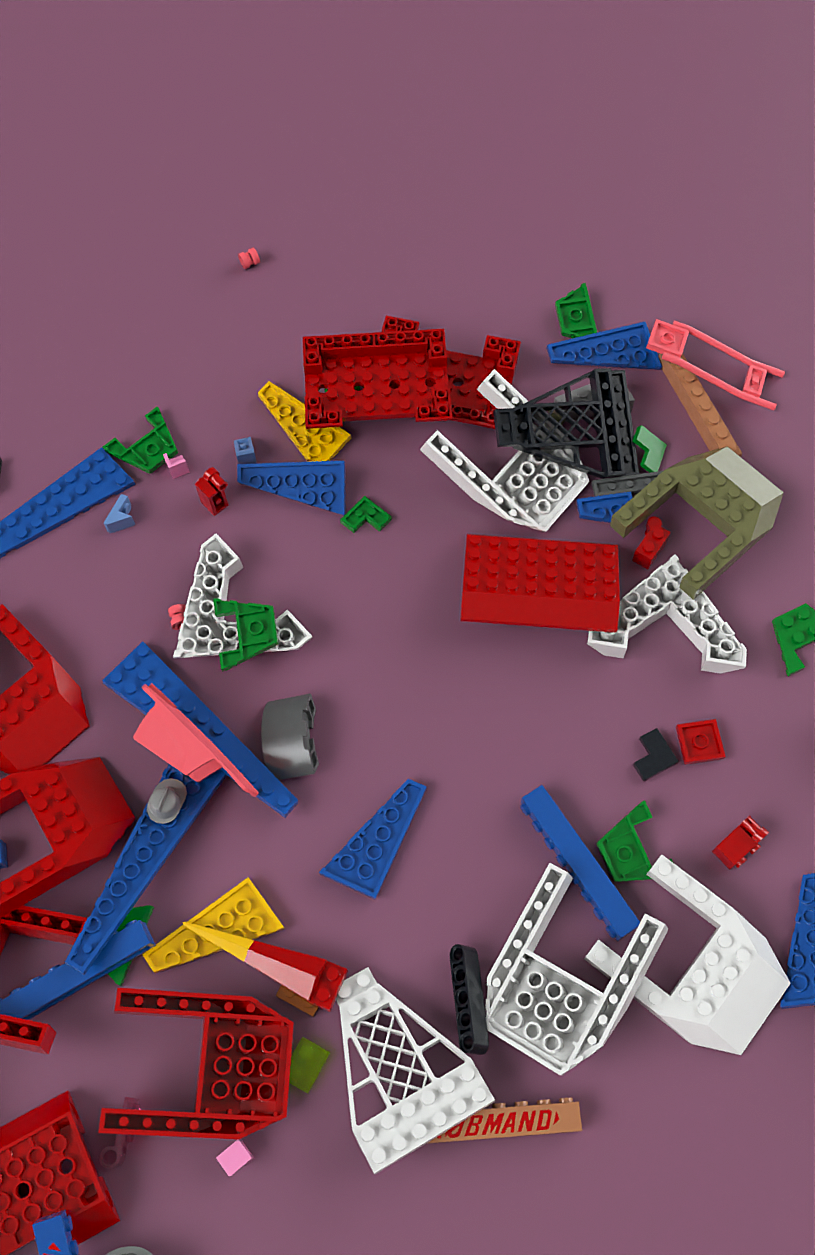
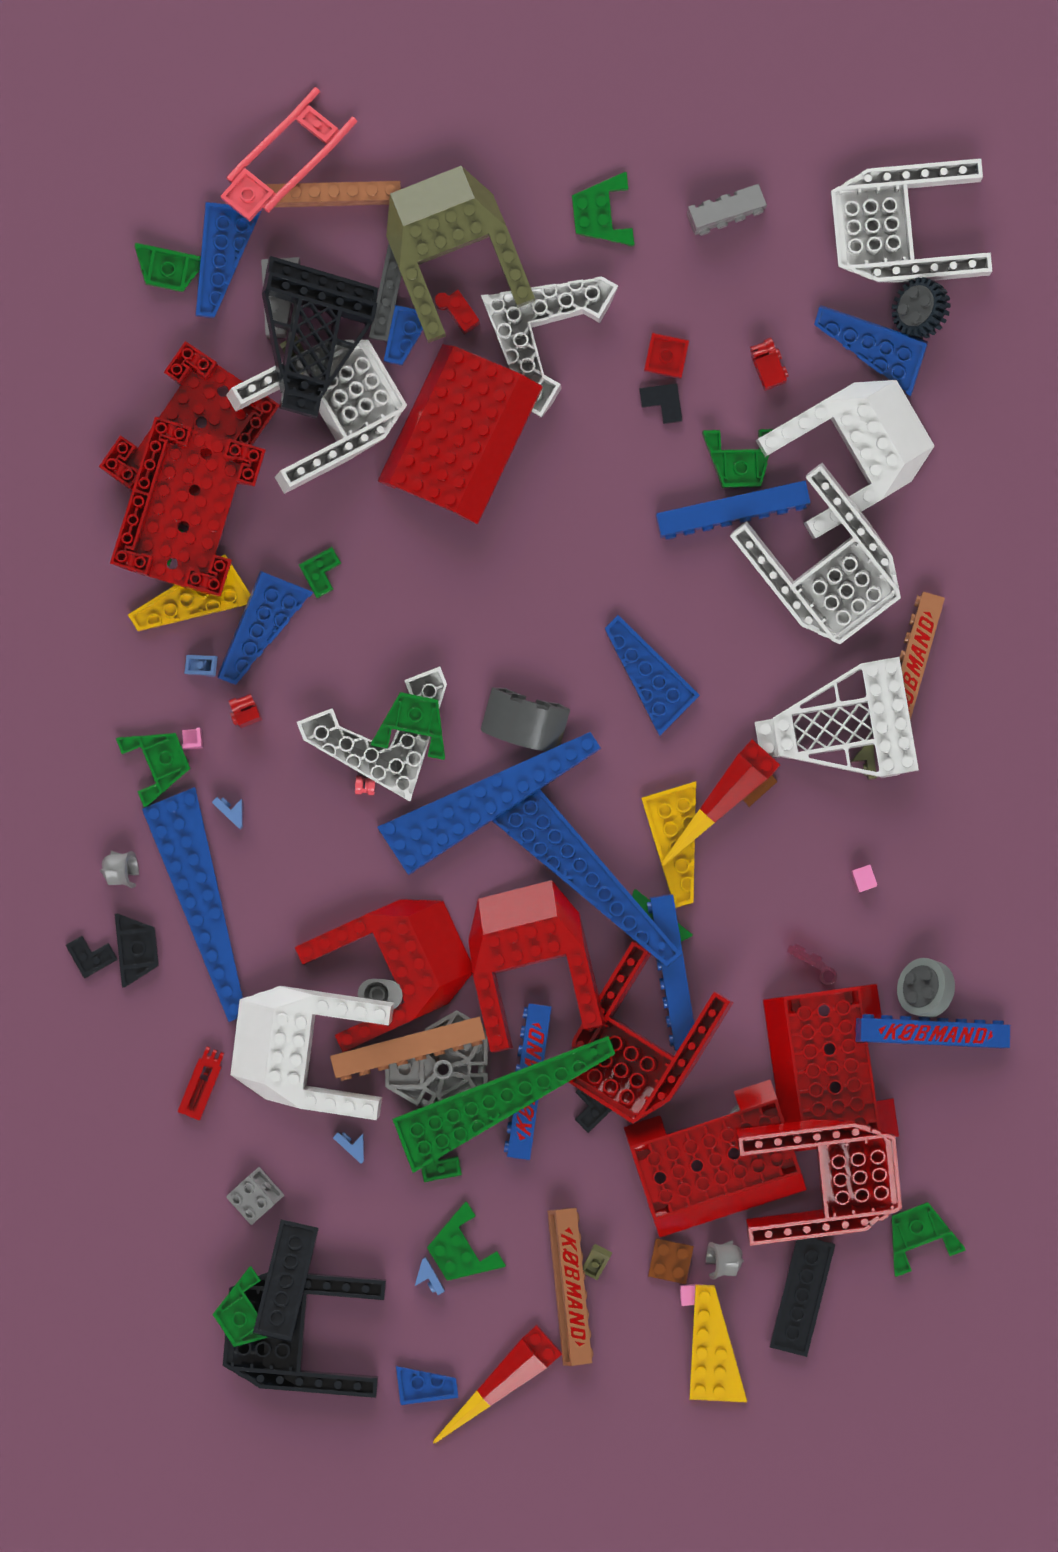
camera: 75 degrees left, 20 degrees up
(39, 442) = (118, 867): none -> light grey helmet
(166, 801) = (549, 846): light grey piece -> none
(181, 743) = (509, 815): coral piece -> none
(239, 1071) = (796, 853): red wedge -> none
(307, 1064) = (813, 800): clear neon green plate -> none
(375, 1104) = (866, 754): none -> olive slope
(468, 1000) = (812, 647): black beam -> none
(653, 448) = (356, 261): tile -> none

